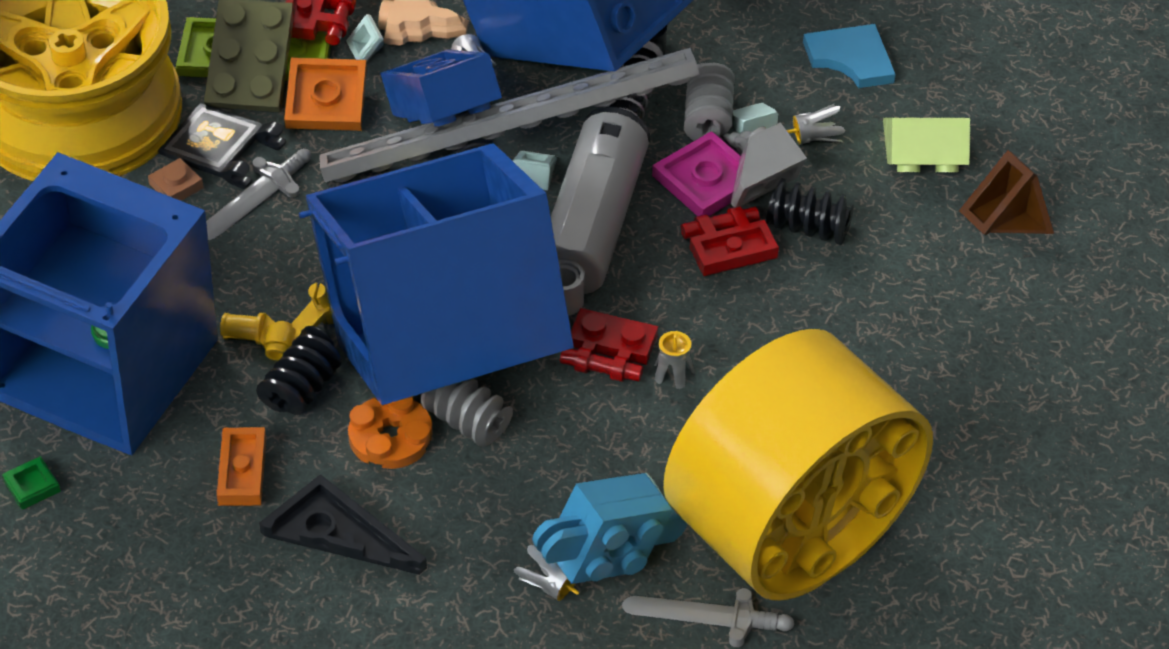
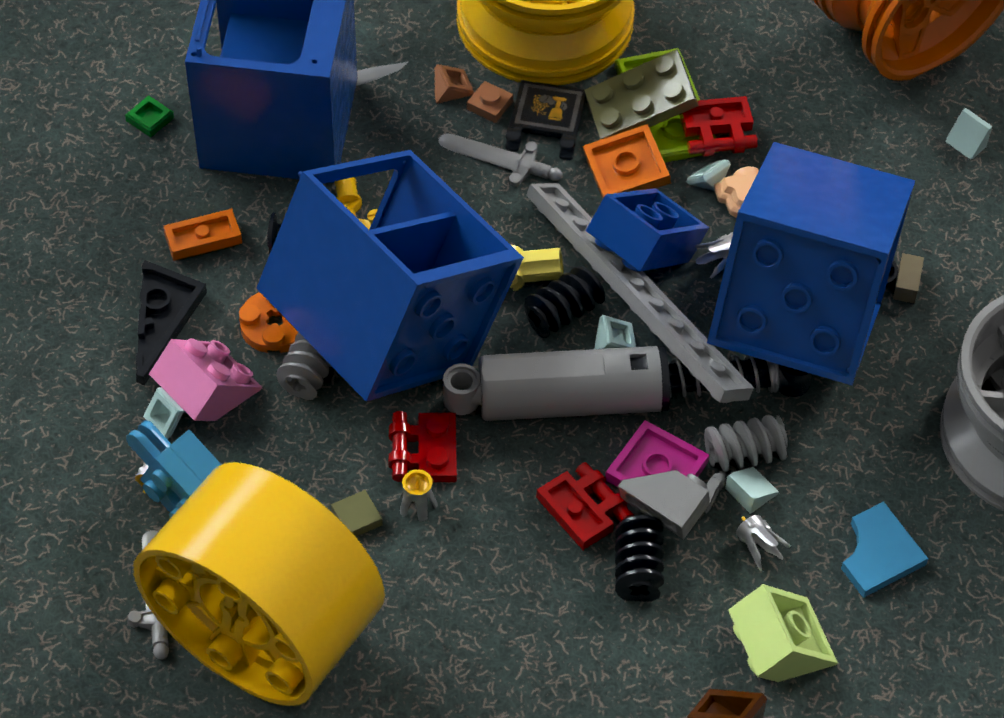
camera: 70 degrees right, 5 degrees up
(452, 504) = (203, 378): none -> bright pink slope
(480, 552) = (163, 412): none -> light aqua slope
(668, 418) = (357, 513): none -> olive tile

